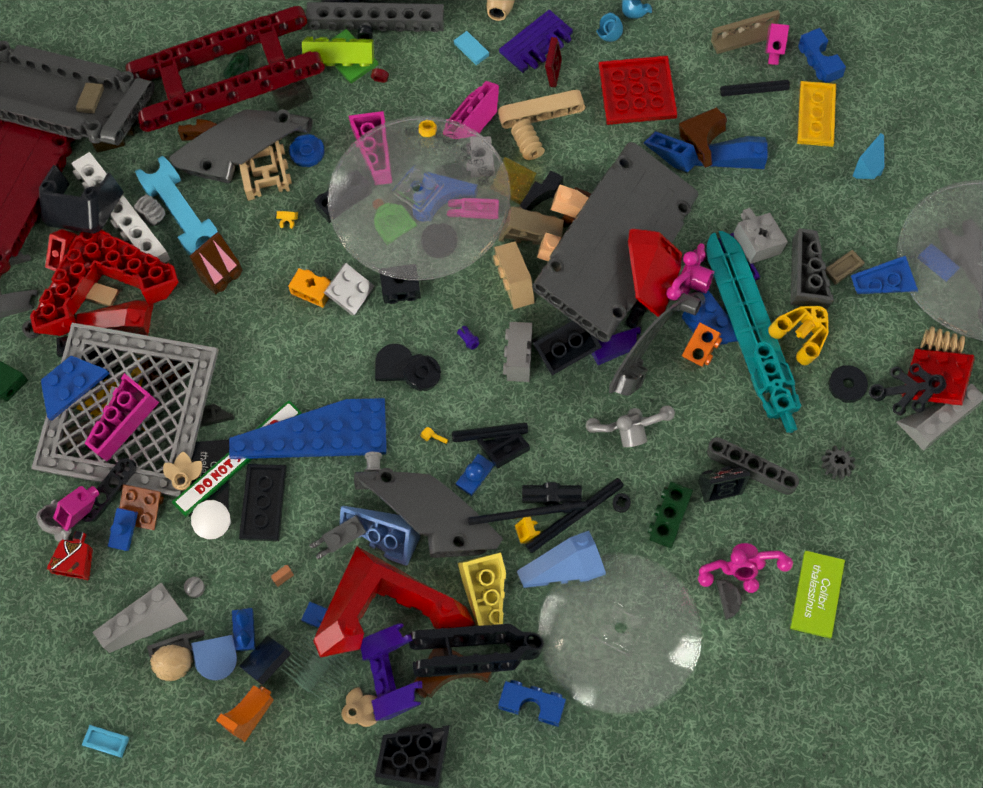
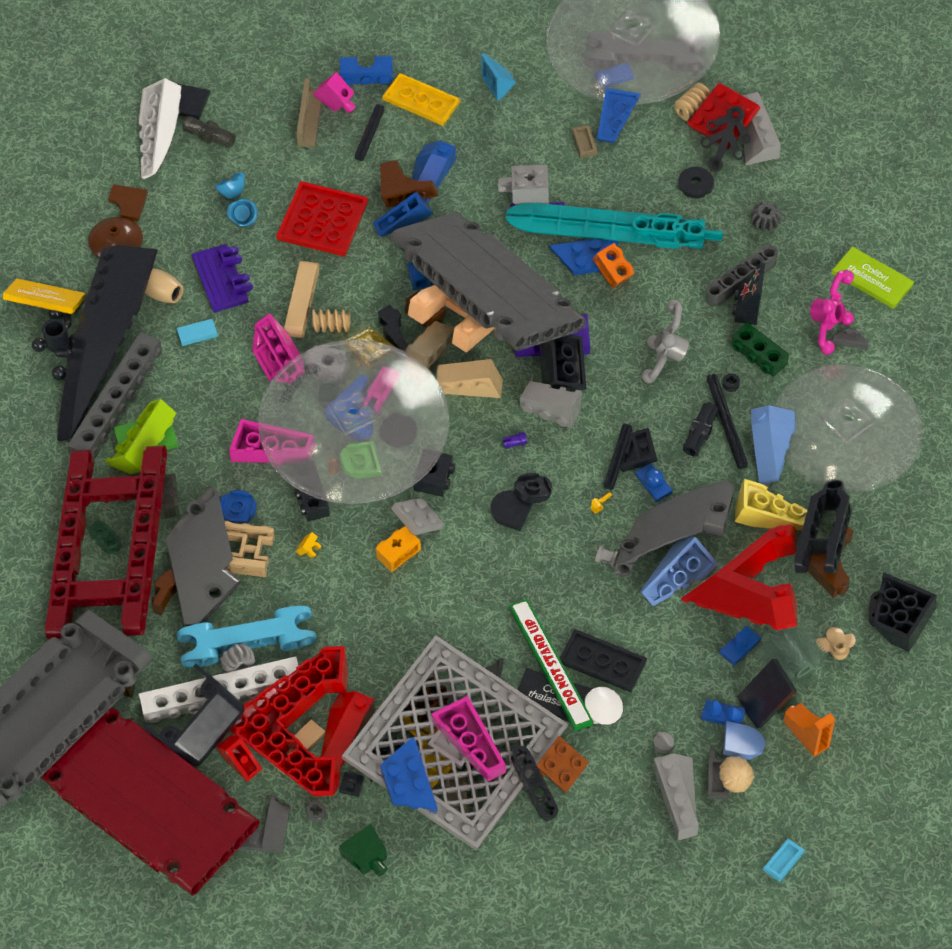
camera: 70 degrees left, 10 degrees down
(49, 525) = (544, 838): light grey hair -> none
(72, 558) = (590, 835): red torso -> none
(75, 506) = (547, 806): dark pink torso -> none
(90, 98) = (72, 674): dark tan tile -> none
(122, 529) = (579, 784): blue tile -> none
(182, 468) = (545, 707): tan plate -> none
(216, 264) = (338, 615): reddish brown slope -> none
(282, 575) = (685, 663): nougat tile -> none
(333, 430) = (558, 577): blue wing -> none
(340, 536) = (668, 605): dark grey hinge -> none
(365, 32) = (129, 412): black bush -> none
(379, 75) = (187, 416): dark red tile -> none
(389, 700) = (840, 616): dark purple wedge -> none
(427, 128) = (293, 380): yellow tile -> none
(515, 695) = (894, 498): blue arch -> none
(526, 530) = (726, 460): yellow tile -> none
(553, 62) = (260, 267): dark red plate -> none
(565, 507) = (720, 421): black bar -> none
(631, 372) = (593, 293): dark grey panel -> none
(654, 268) = (532, 260): red wedge -> none
(692, 275) = (545, 243): dark pink wheel -> none
(808, 272) = (579, 164): dark grey wedge -> none
(814, 320) = (635, 182): yellow connector -> none

